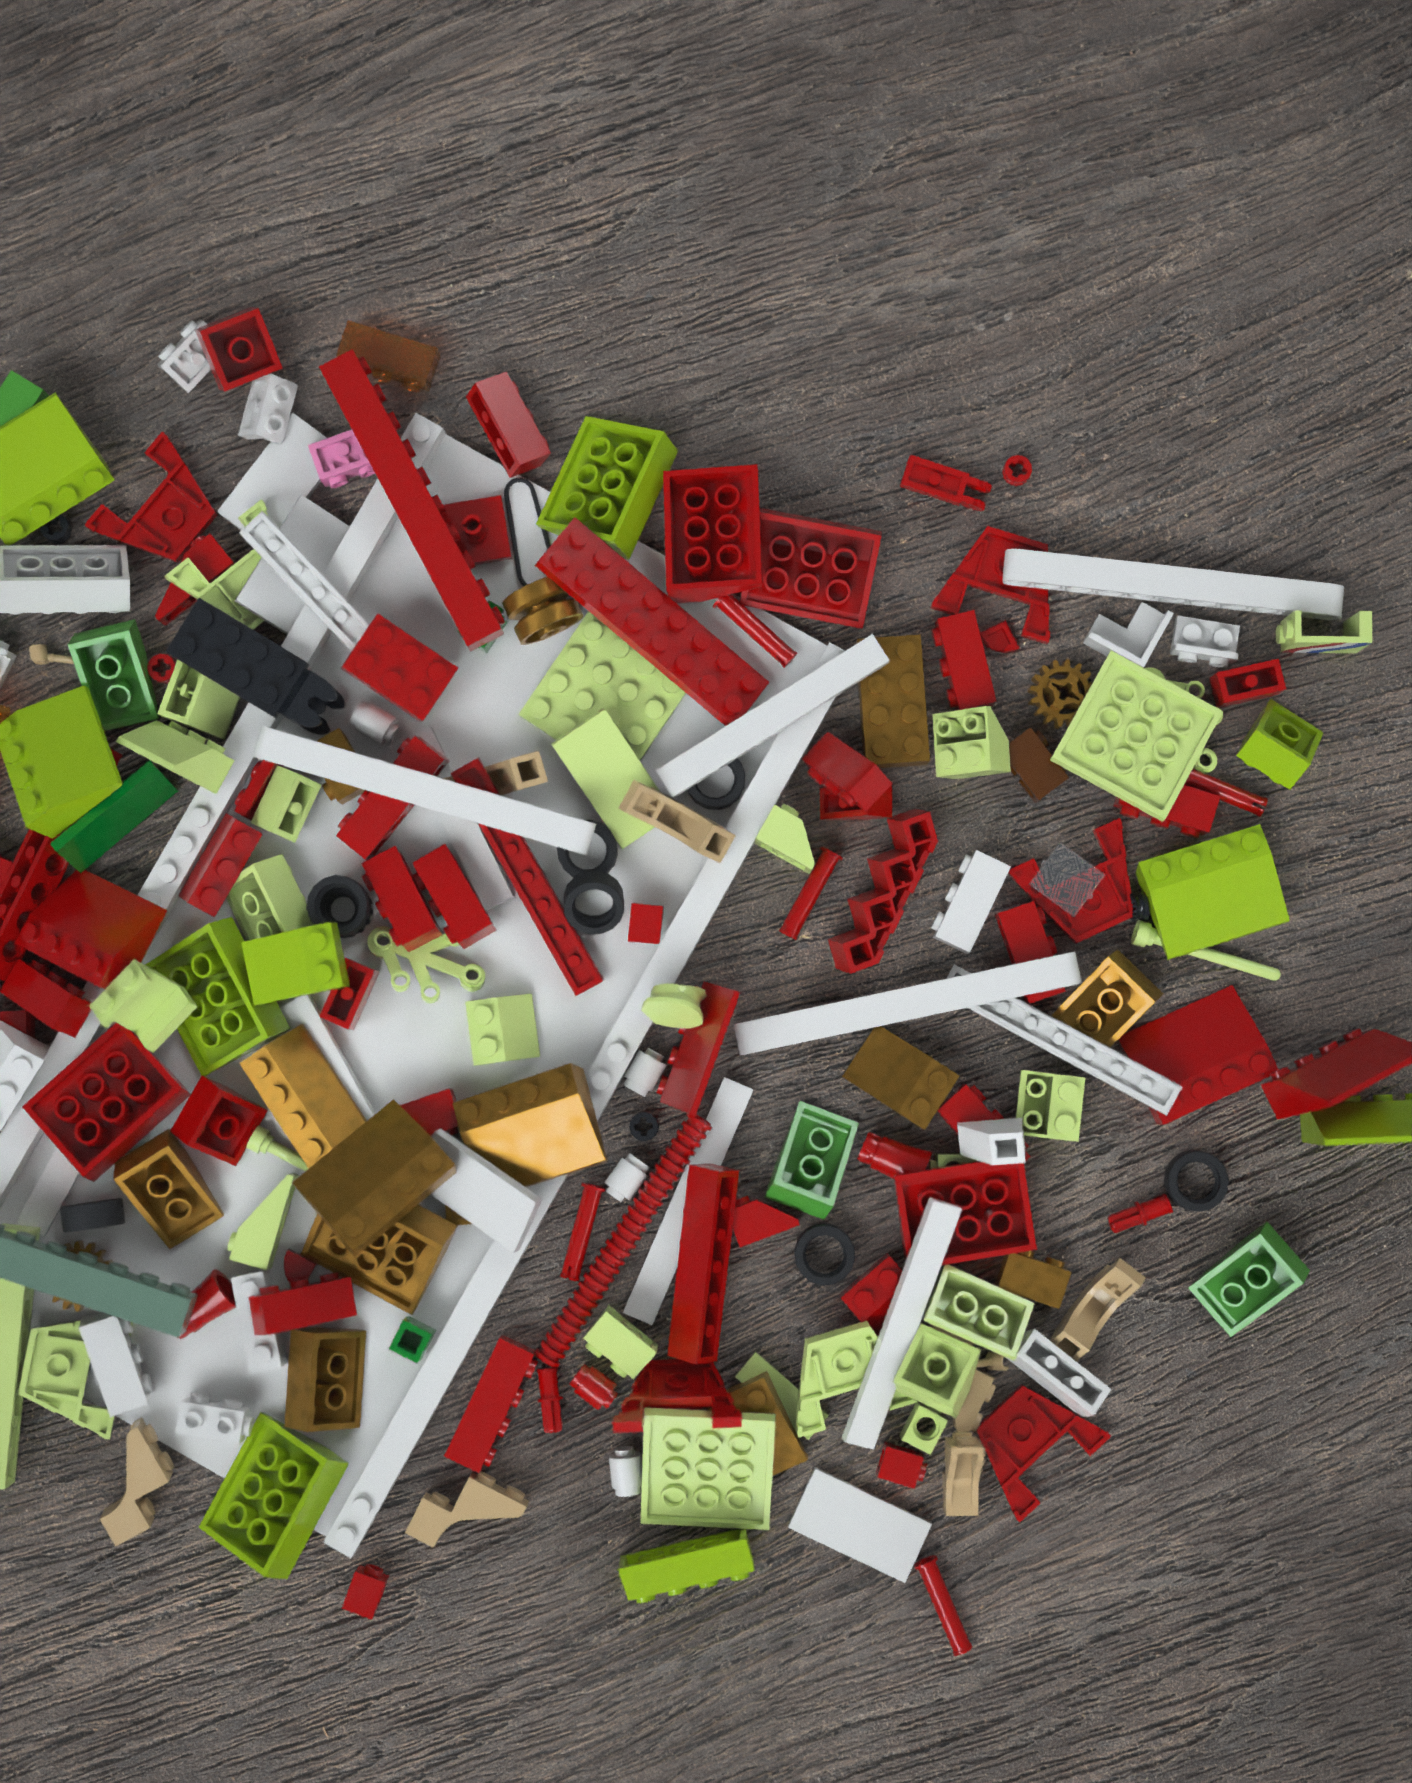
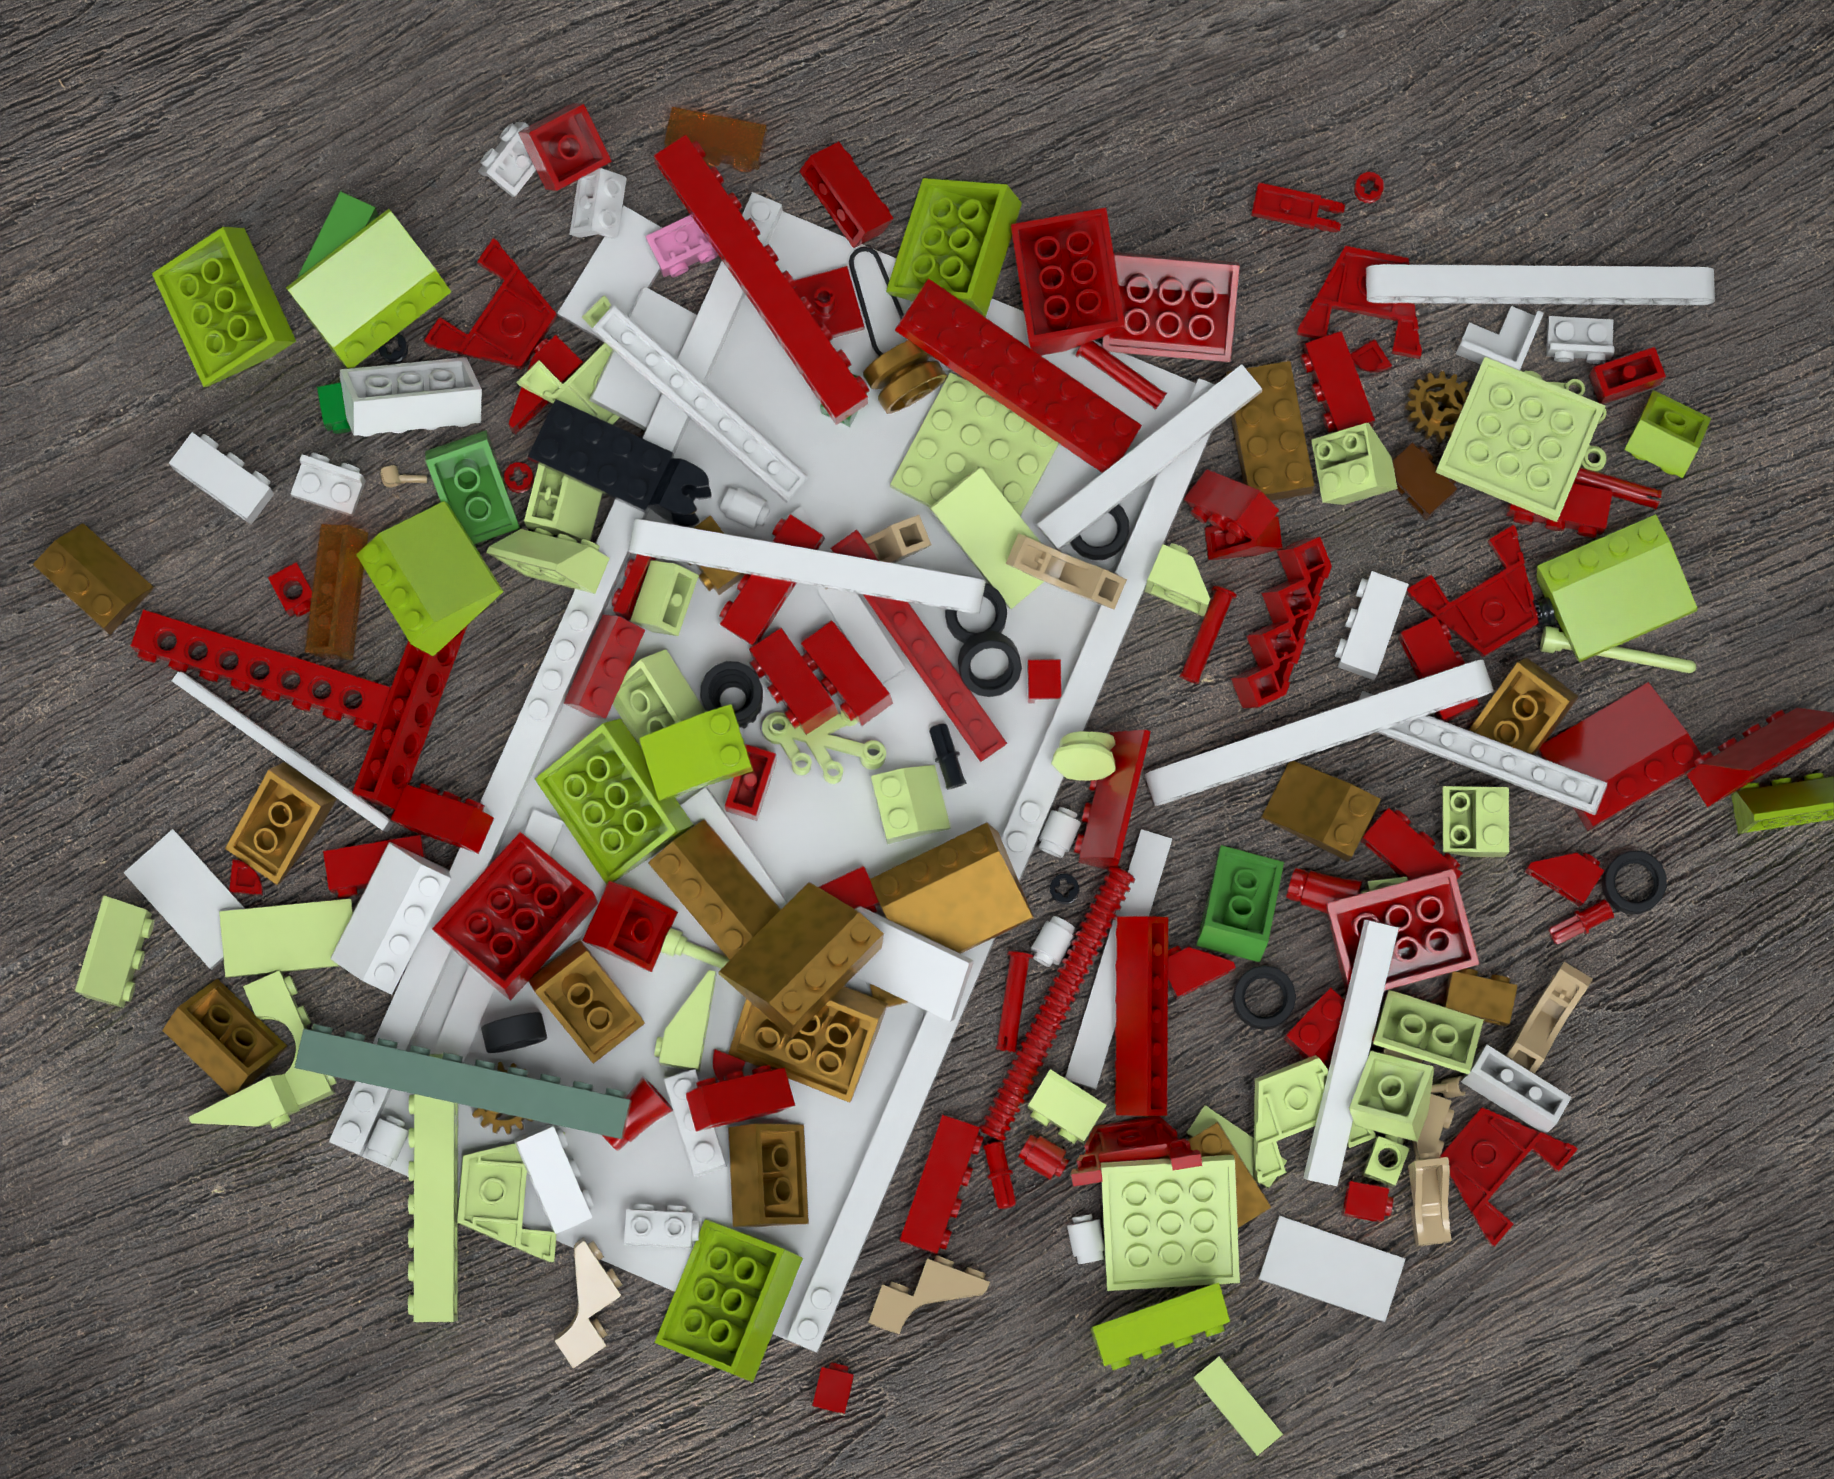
camera: 10 degrees left, 5 degrees down
(91, 928) = (483, 746): red slope -> none
(114, 817) = (491, 630): green tile -> none
(144, 1004) = (547, 812): yellowish green panel -> none
(399, 668) = (766, 448): red brick -> none
(412, 1339) = (854, 1123): green brick -> none
(543, 986) = (947, 756): none -> black axle
(754, 1647) = (1238, 1406): none -> yellowish green tile
(943, 1605) = (1427, 1340): red pin -> none
(993, 1141) = (1421, 857): white slope -> none
(1067, 879) = (1467, 592): clear piece -> none
(1134, 1167) = (1568, 875): none -> red slope
(1250, 1279) = (1699, 976): bright green slope -> none
(1356, 635) = (1727, 324): yellowish green panel -> none

